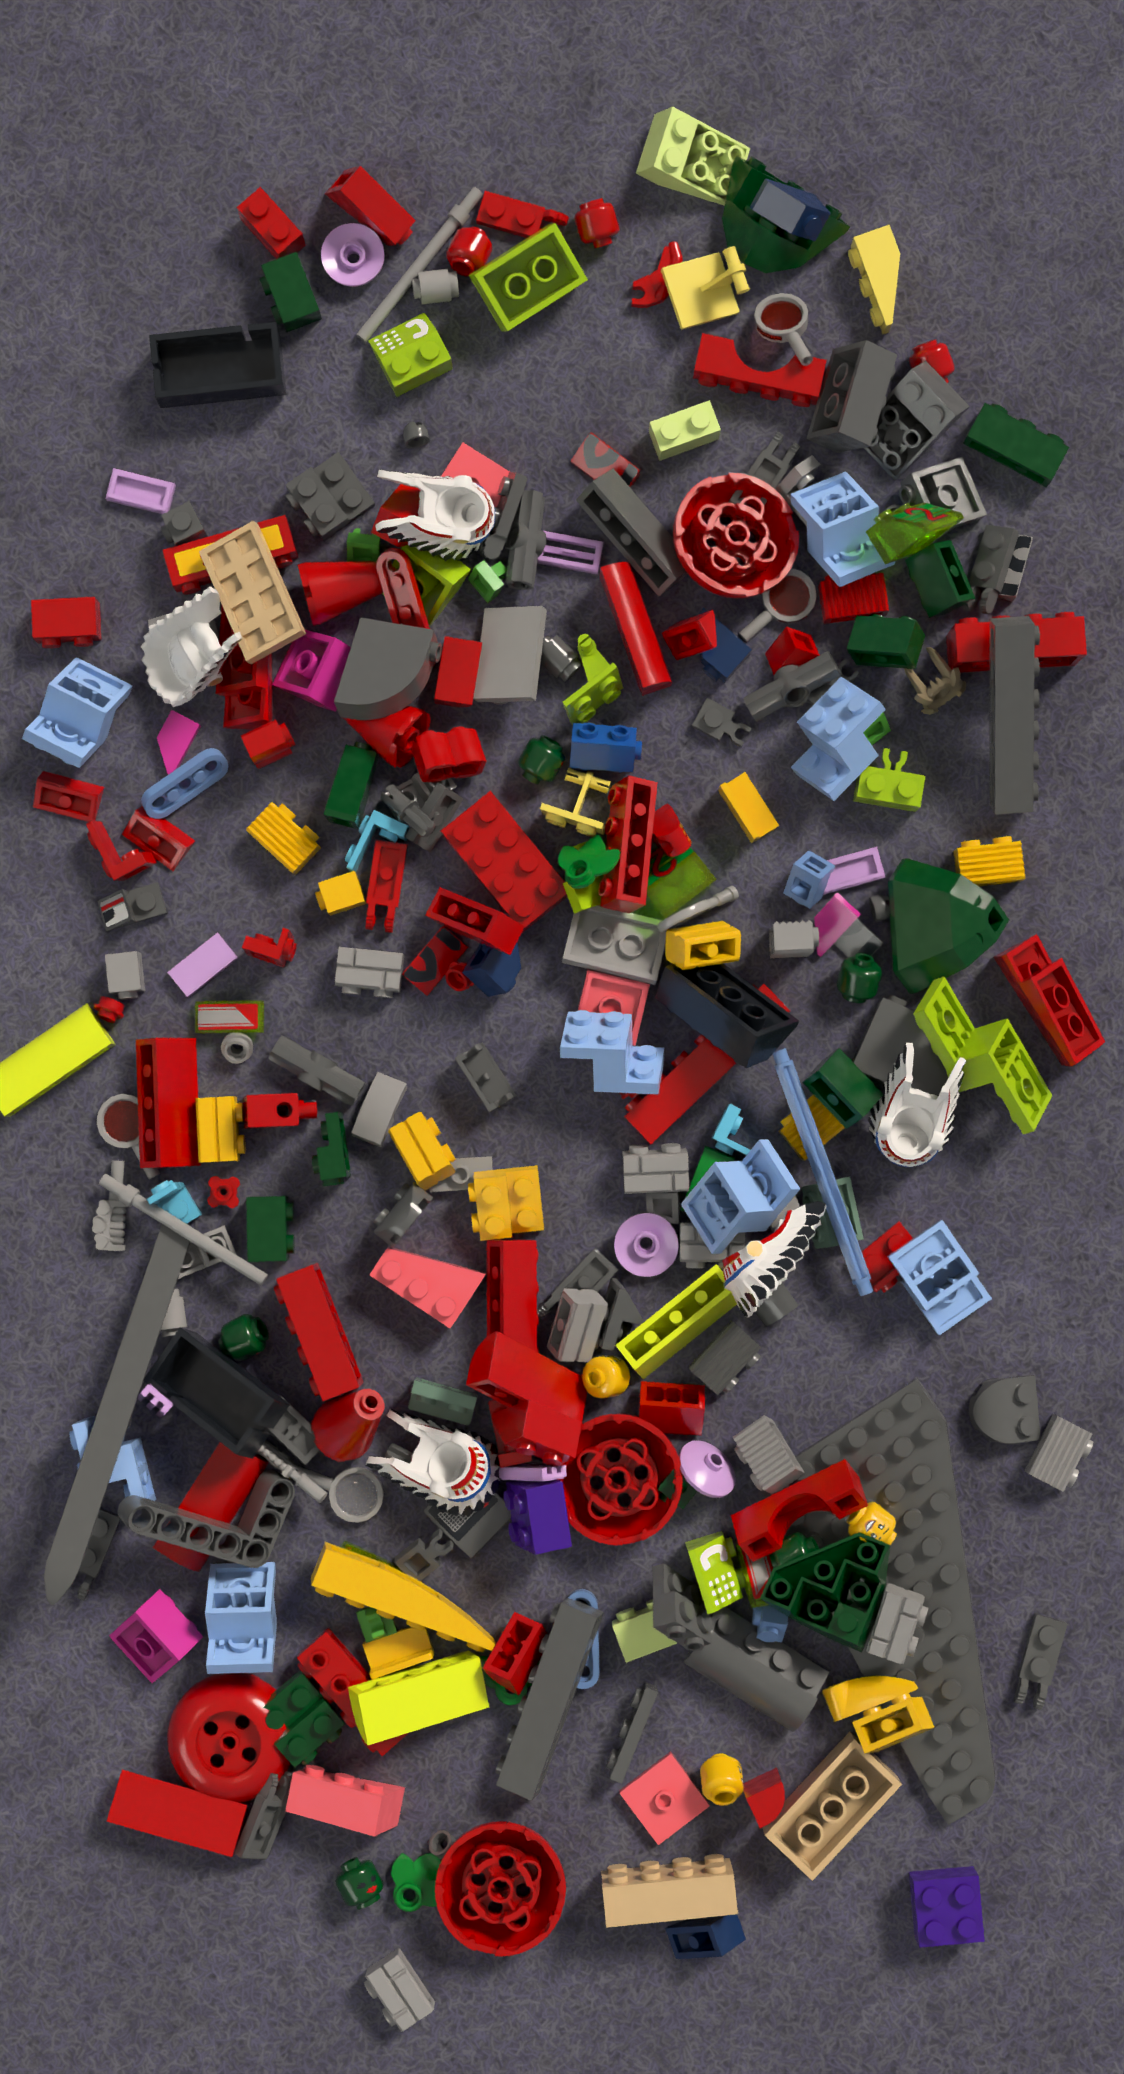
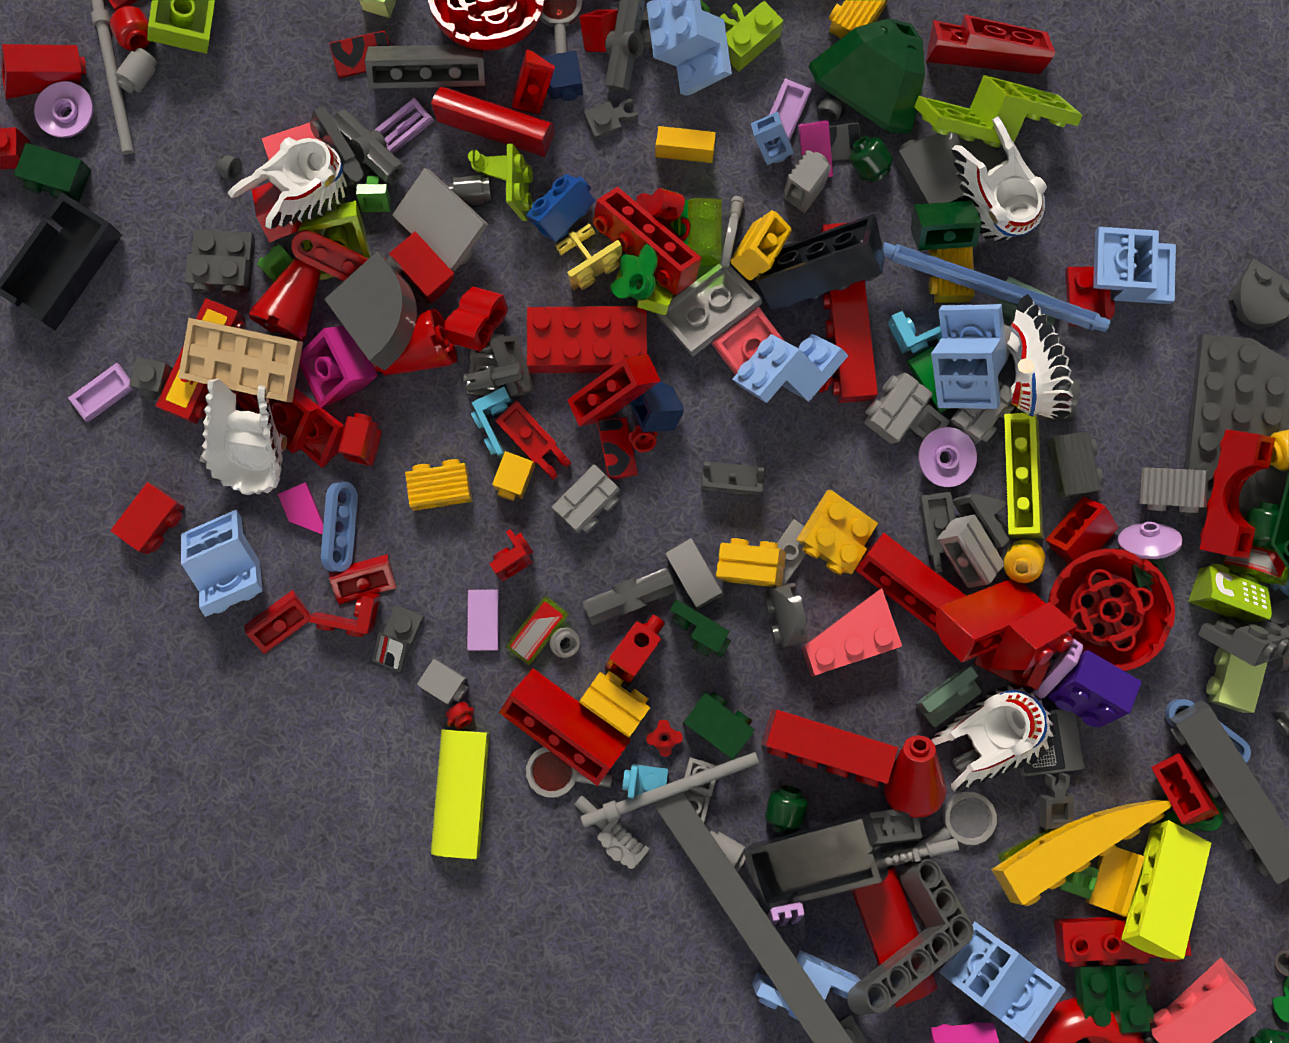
camera: 50 degrees left, 5 degrees down
(351, 786) = (442, 406): dark green slope -> none
(411, 354) = (170, 124): lime slope -> none
(541, 759) = (533, 258): dark green head -> none

